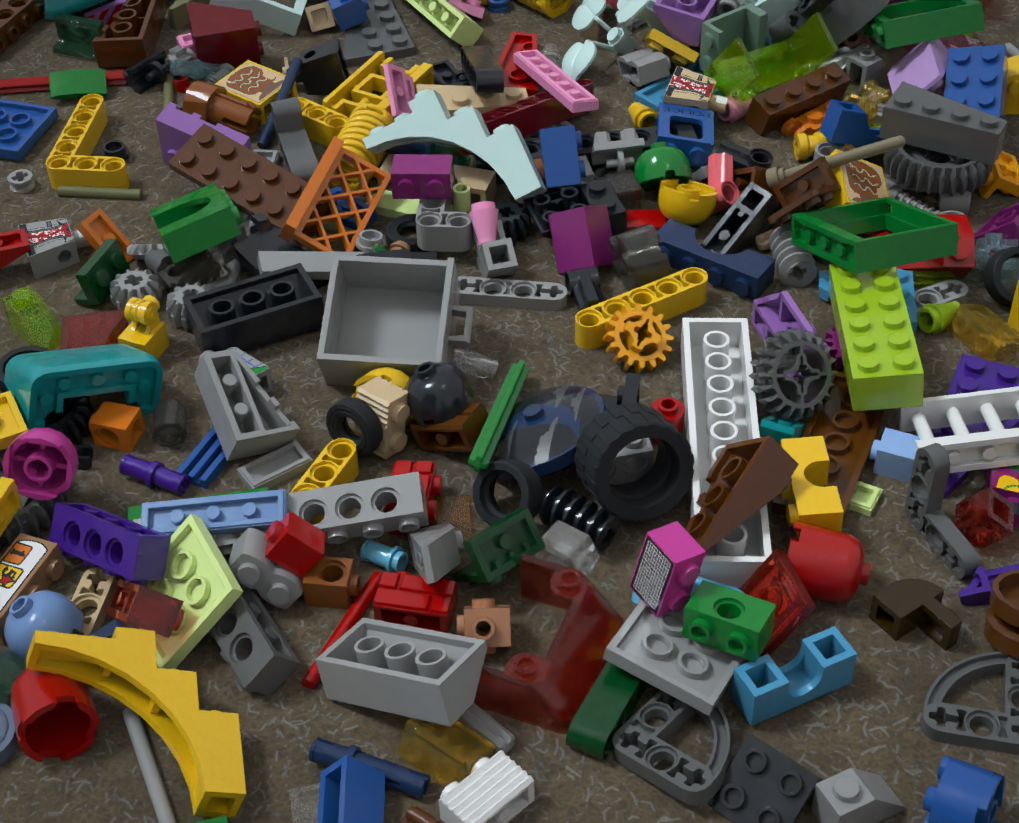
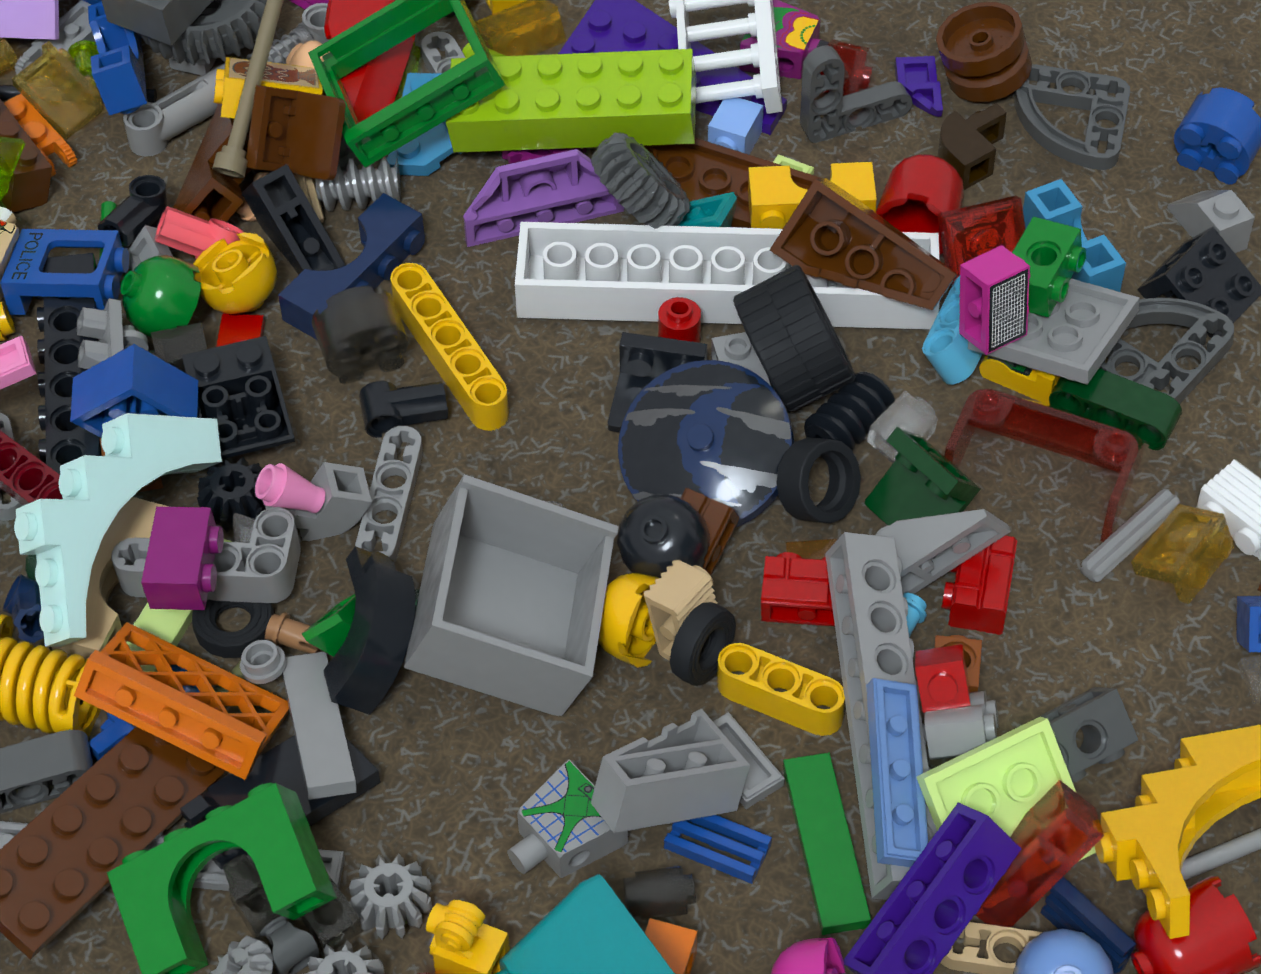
camera: 90 degrees left, 10 degrees up
(154, 474) = (758, 903): dark purple pin -> none
(255, 310) = (431, 795): black slope -> none
(352, 616) = (1022, 665): red bar -> none
(396, 776) = (1214, 635): dark blue pin -> none
(403, 670) = (1115, 566): light grey slope -> none
(496, 615) = (1023, 504): nougat brick -> none
(498, 416) = (677, 479): green axle -> none
(581, 237) = (311, 396): magenta slope -> none
(651, 338) = (521, 347): light orange gear -> none
(805, 144) = (105, 143): yellow wheel -> none

